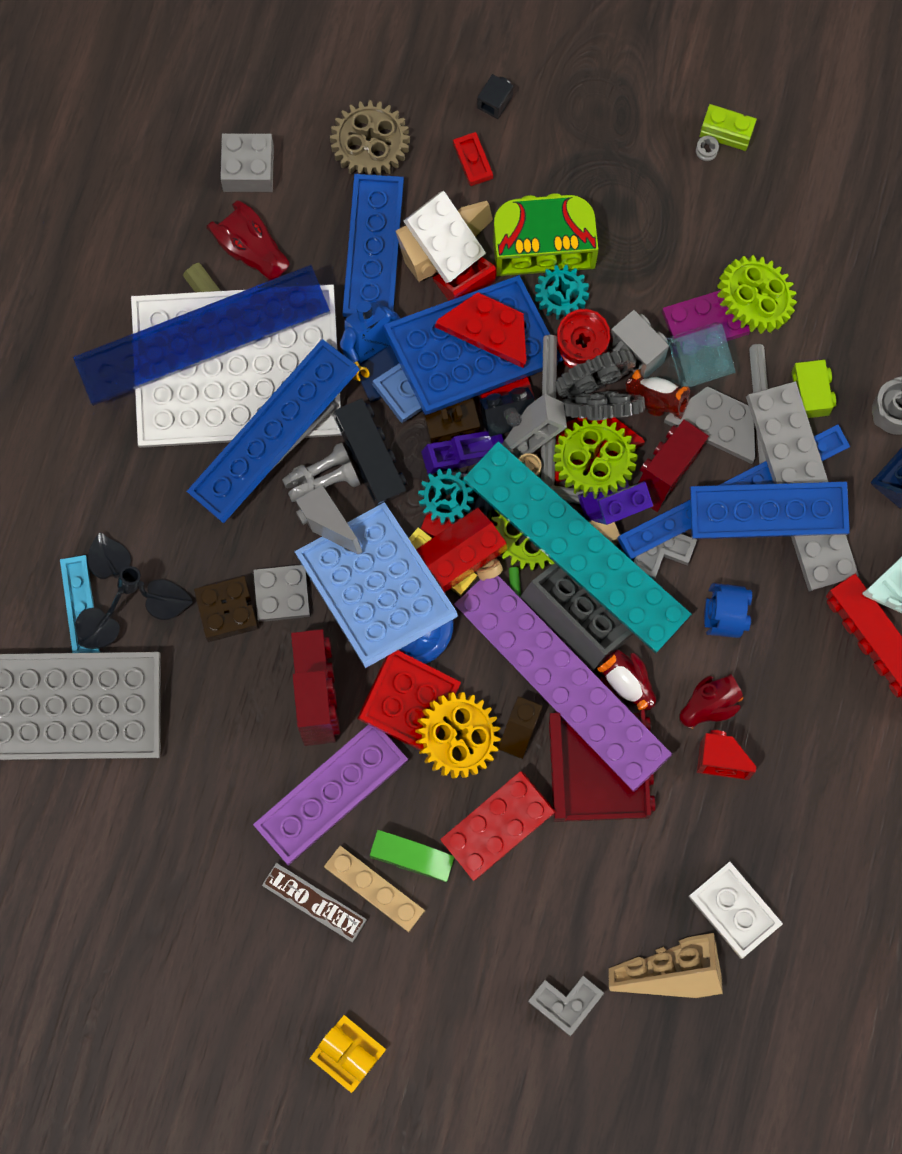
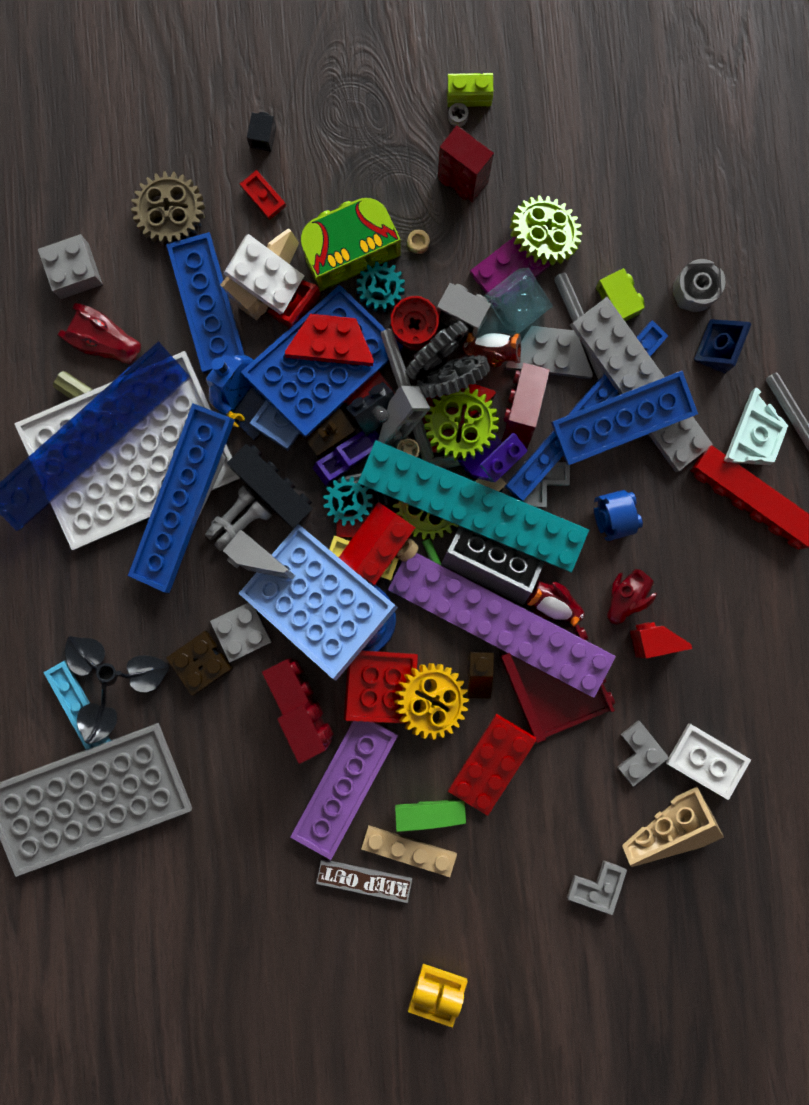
camera: 20 degrees left, 10 degrees up
(618, 261) = (418, 241): none -> tan tile
(671, 877) = (647, 754): none -> light grey plate
(693, 199) = (464, 164): none -> dark red brick

